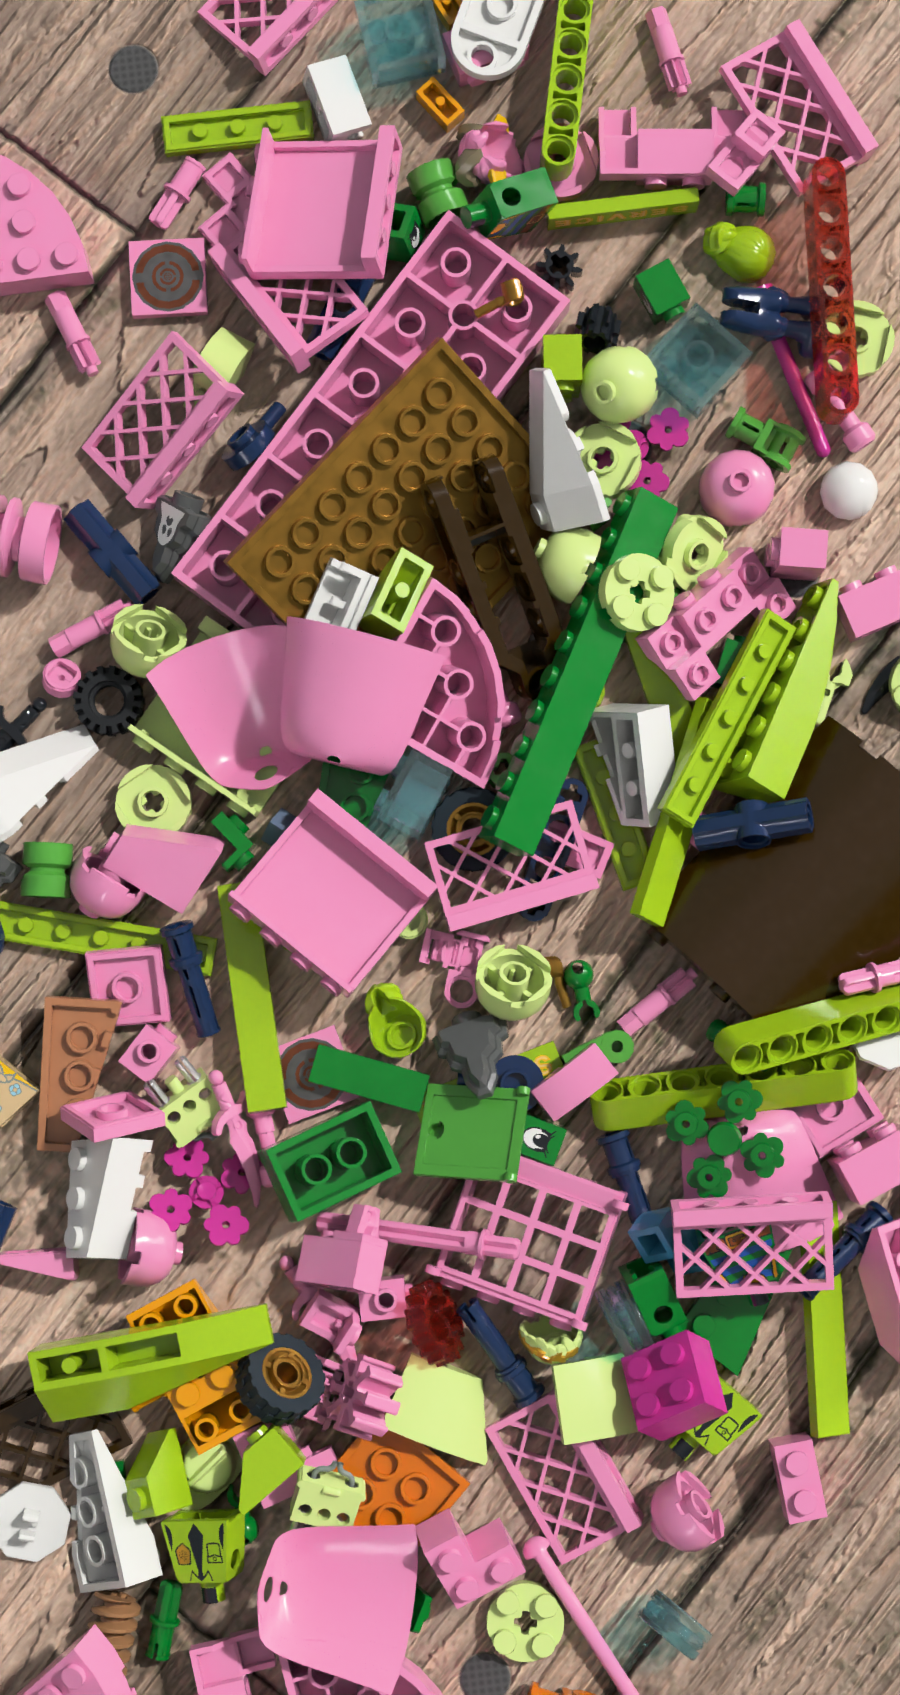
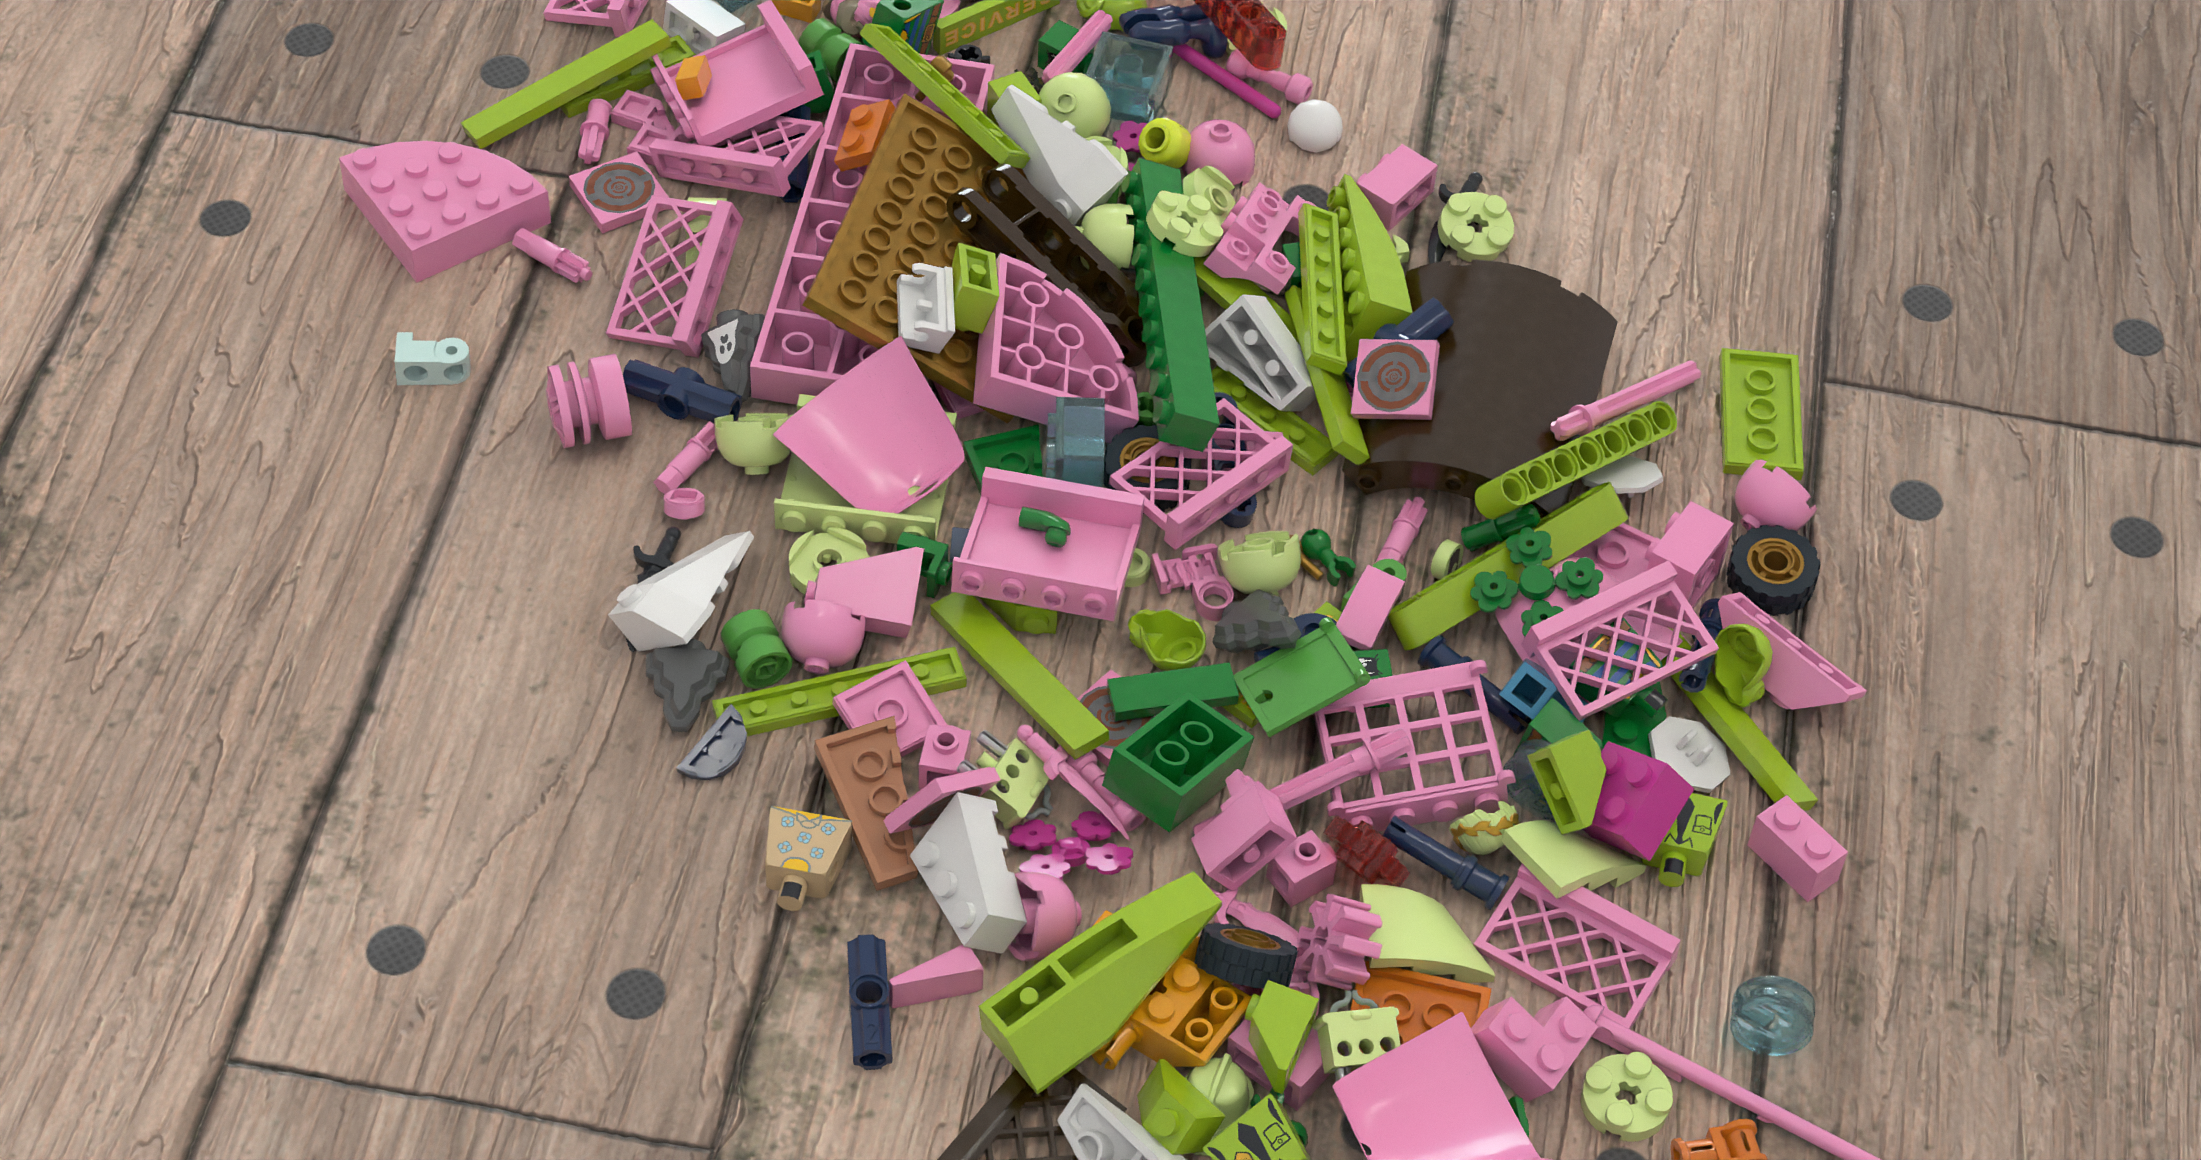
camera: 30 degrees left, 35 degrees down
(87, 692) = (736, 486): black tyre -> none
(172, 128) = (566, 84): none -> lime tile
(187, 961) = (941, 658): dark blue pin -> none
(252, 439) = (763, 265): dark blue piece -> none
(283, 185) = (693, 77): none -> light orange piece
(332, 1320) = (1264, 899): bright pink bracket -> none
(347, 870) = (1045, 521): none -> green arm
(352, 694) = (974, 363): bright pink piece -> none
(397, 347) = (863, 134): none -> orange bracket
(490, 337) = (945, 95): none -> lime tile
(630, 1355) = (1570, 779): none -> lime slope
(662, 310) = (1078, 46): none -> bright pink axle
(680, 1048) = (1446, 559): none -> yellowish green tile
(683, 1515) = (1714, 921): bright pink cylinder -> none
(687, 460) = (1165, 142): none -> neon yellow head
(723, 870) = (1395, 379): none -> tile
(767, 439) = (1223, 108): bright green connector -> none
(768, 1340) = (1691, 752): none -> white piece
(797, 553) = (1304, 165): bright pink brick -> none
(858, 1293) = (1742, 662): none -> lime hair

